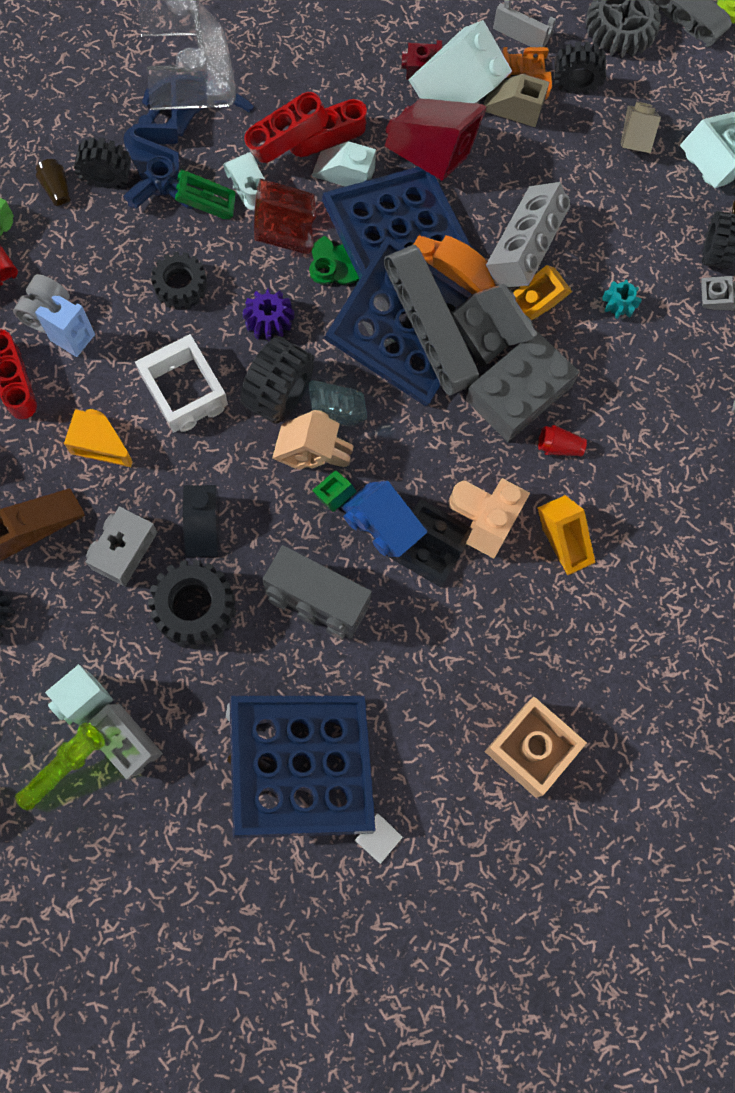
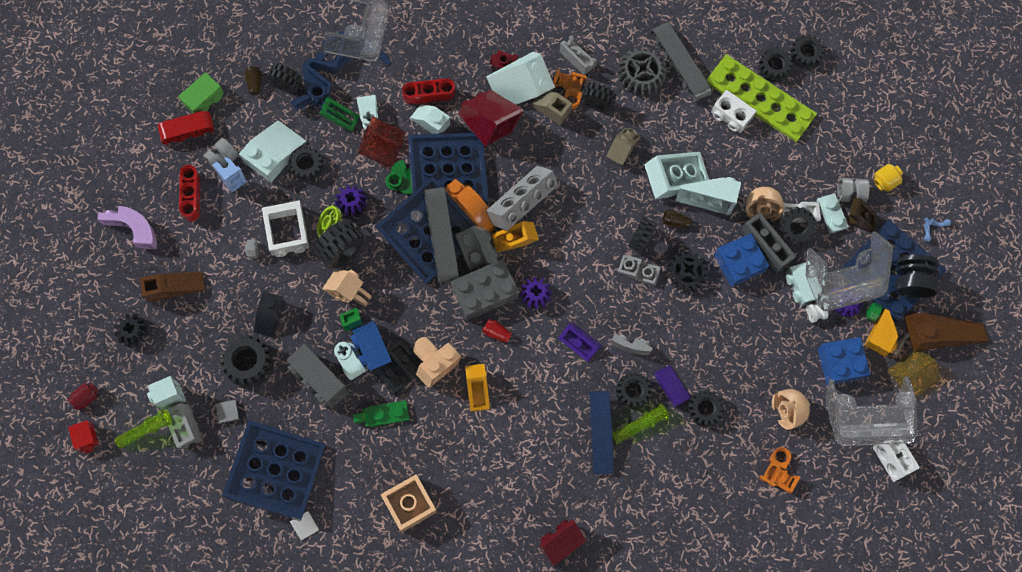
camera: 20 degrees right, 0 degrees up
(94, 438) = (225, 246): light orange slope -> none
(117, 277) = (271, 150): none -> light aqua slope
(121, 562) = (226, 307): light grey brick -> none
(138, 430) = (251, 249): none -> light grey tile
(187, 695) = (227, 411): none -> light grey tile
(245, 353) = (326, 221): none -> lime wheel
(293, 114) = (391, 85): red beam -> none
(342, 403) = (376, 271): clear light blue slope -> none
(360, 555) = (350, 361): none -> light aqua piece
(437, 621) = (383, 414): none -> green hinge
(590, 367) = (529, 296): none -> dark purple gear
(625, 305) = (567, 247): teal gear -> none
(688, 422) = (579, 341): none -> dark purple slope

